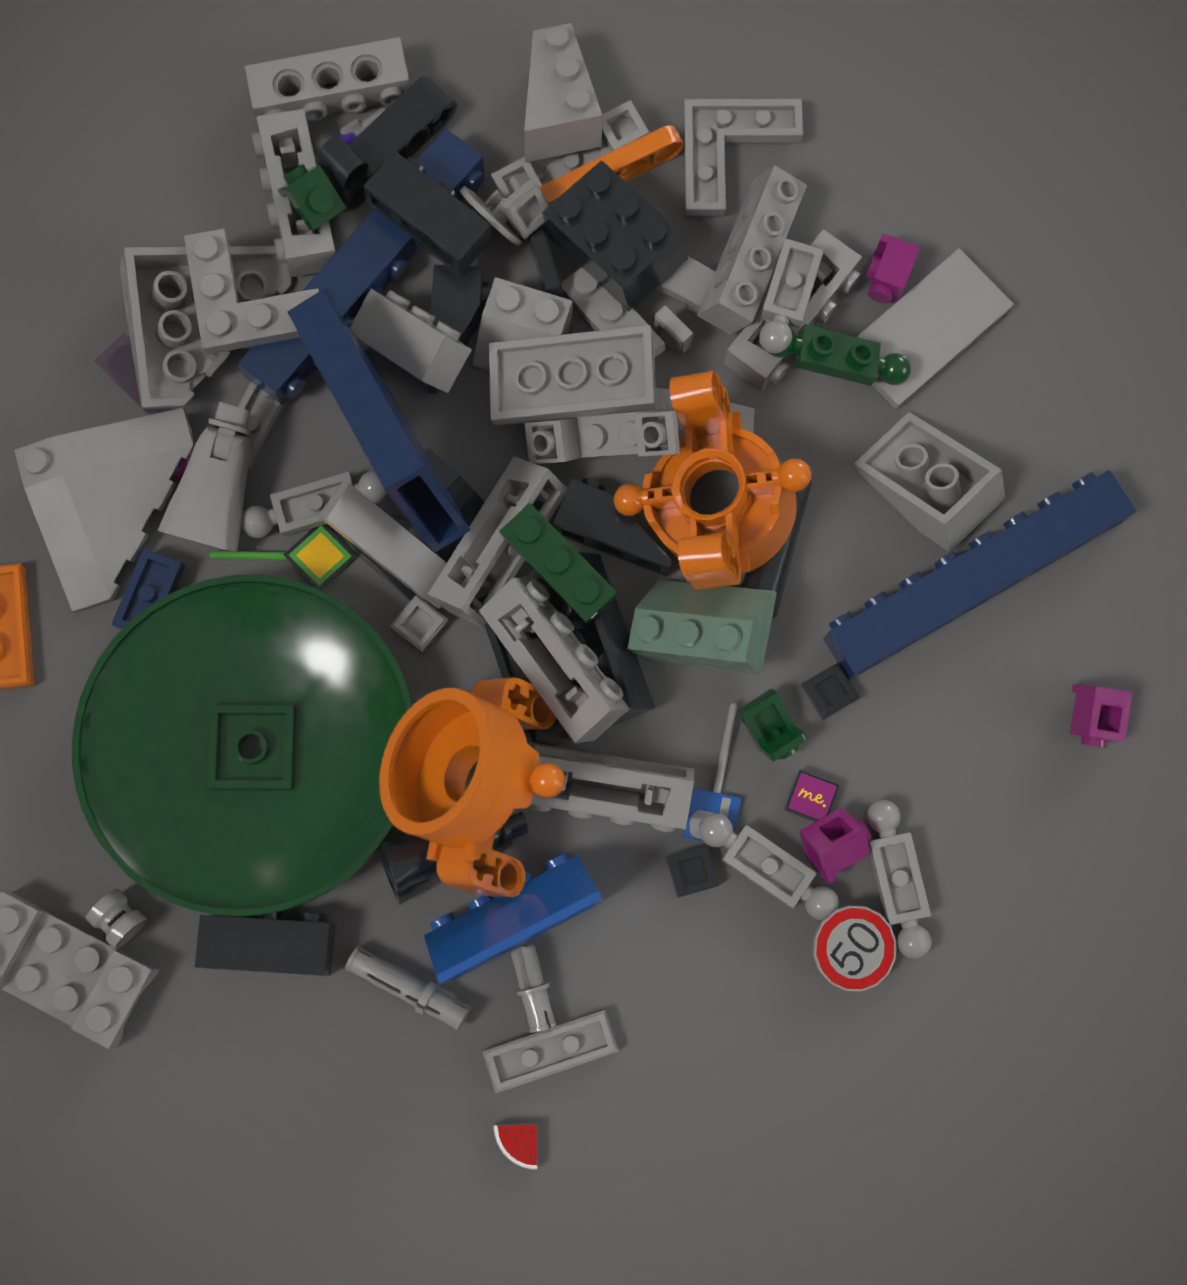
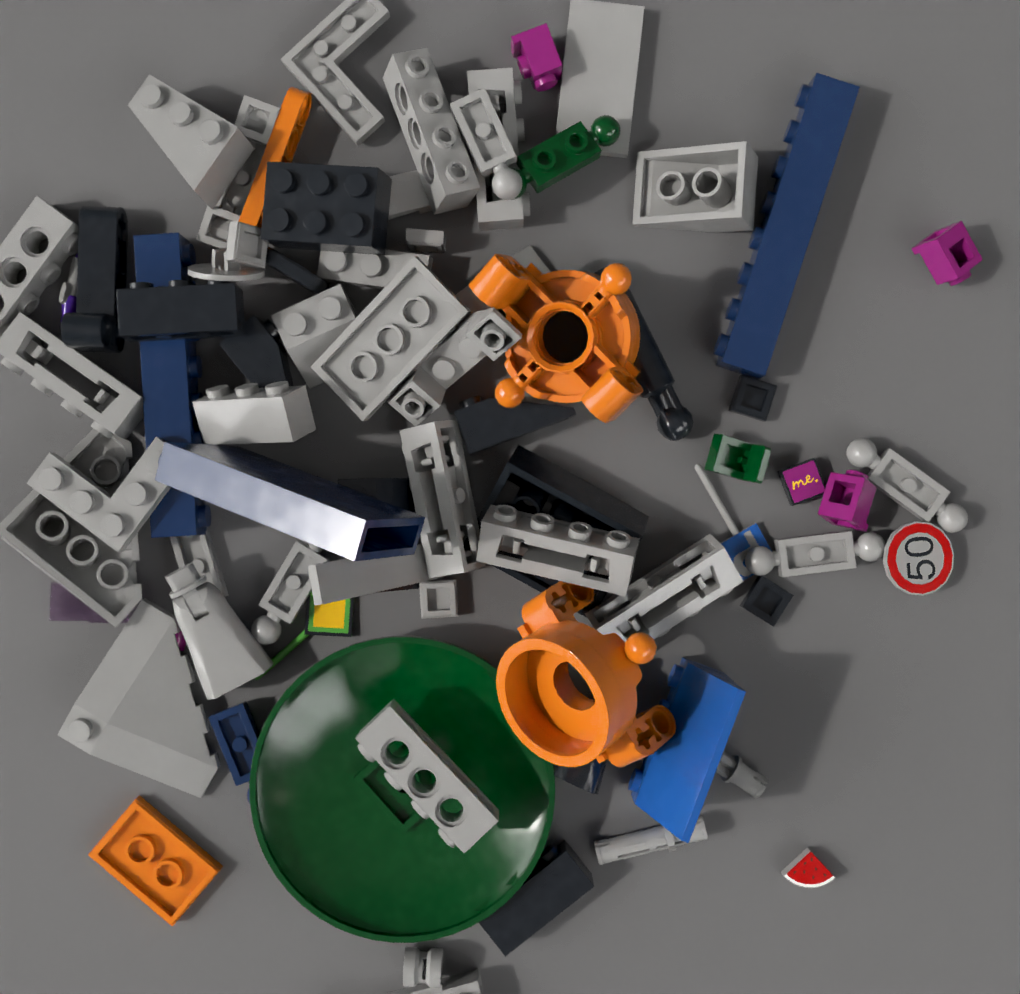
camera: 35 degrees left, 10 degrees up
(289, 808) = (456, 829): none -> light grey brick
(312, 195) = (87, 373): dark green bracket -> none
(550, 1051) = (785, 784): light grey tile -> none
(558, 563) = (502, 483): dark green plate -> none
(703, 627) = (640, 437): sand green slope -> none

